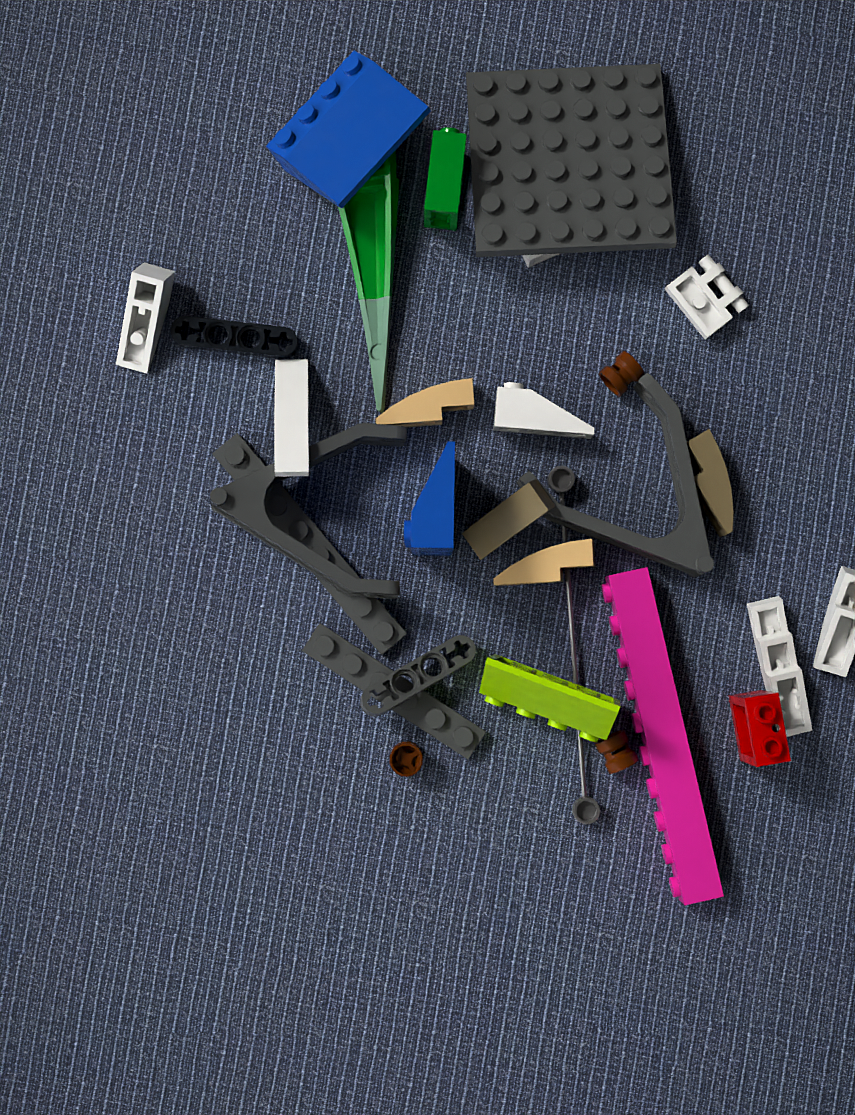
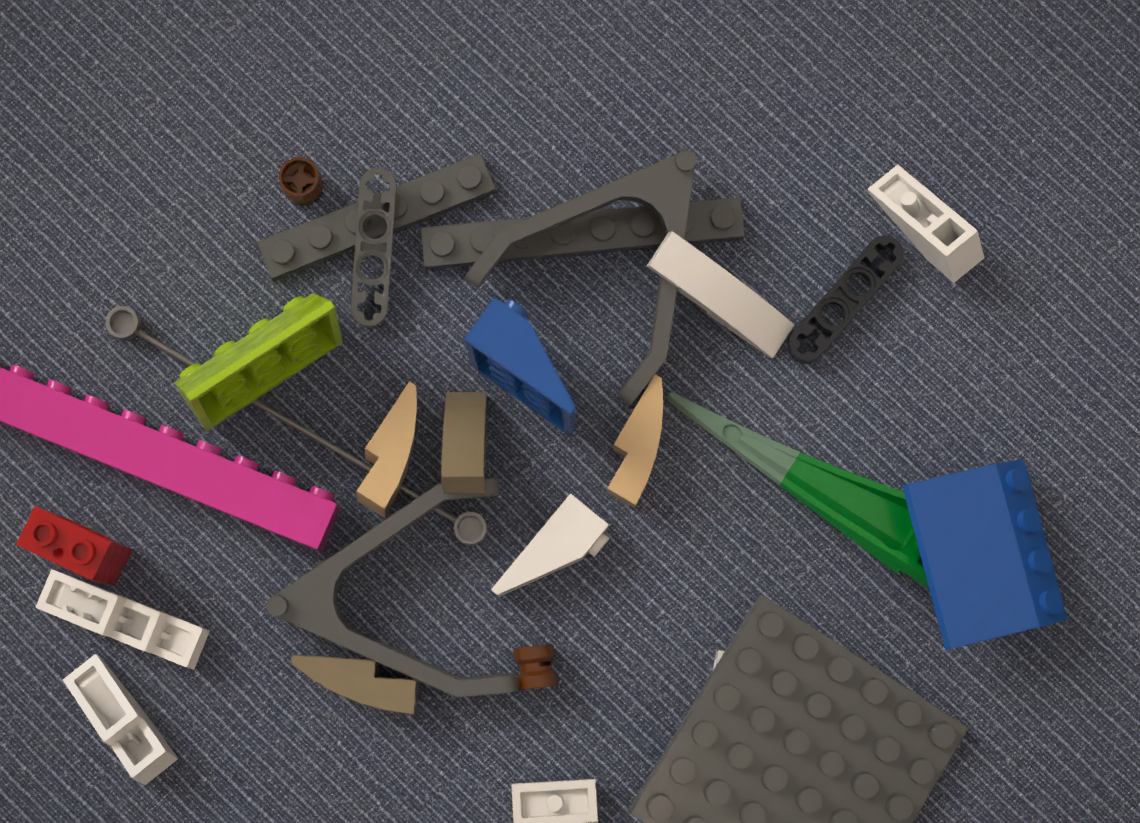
camera: 125 degrees right, 5 degrees down
(444, 179) = (865, 620): green window -> none
(620, 758) = (156, 393): reddish brown wheel -> none

